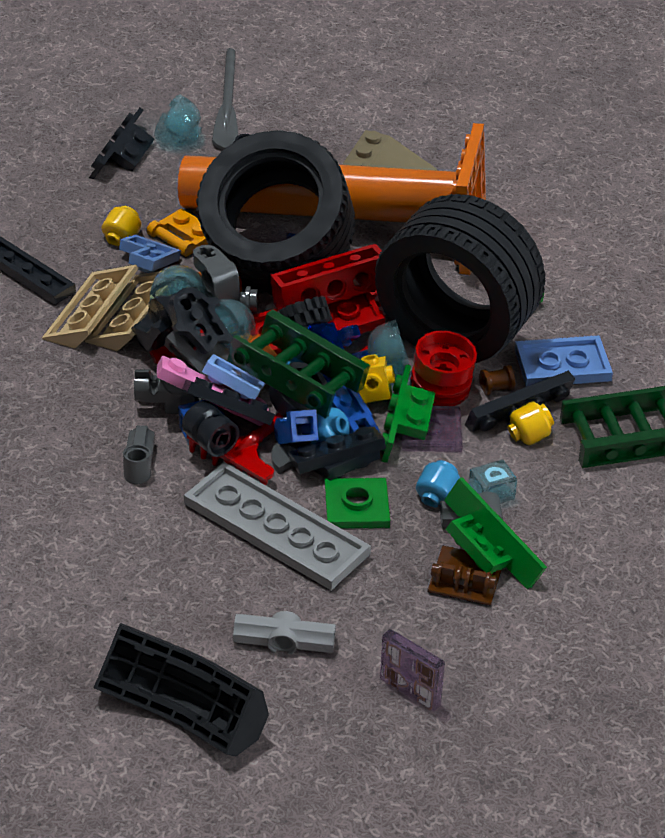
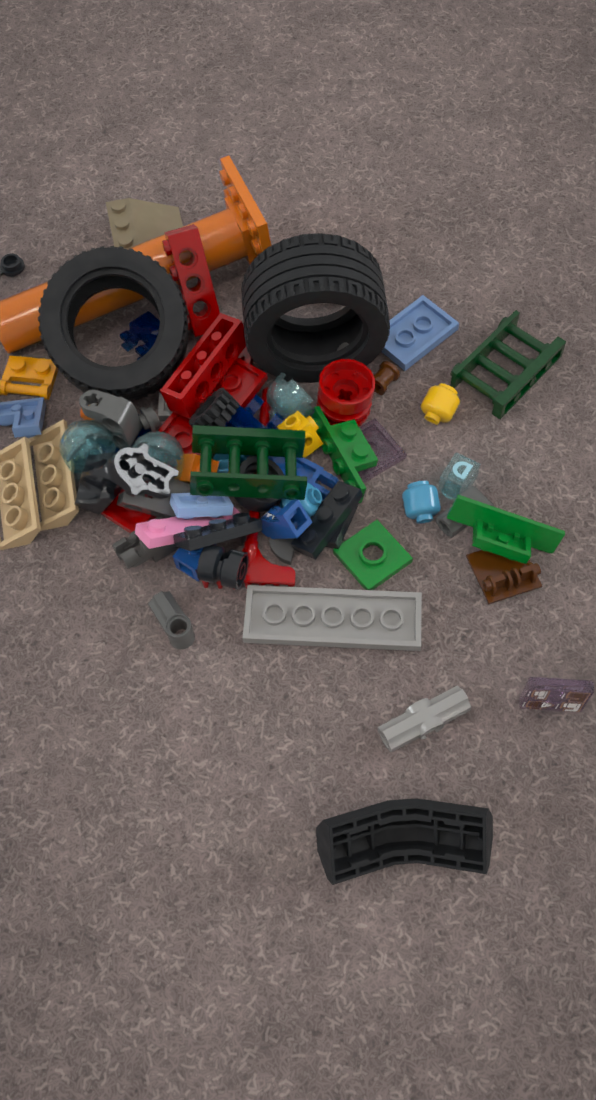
camera: 30 degrees left, 20 degrees up
(395, 175) = (189, 239): none -> red brick
(488, 414) = (421, 382): black plate -> none

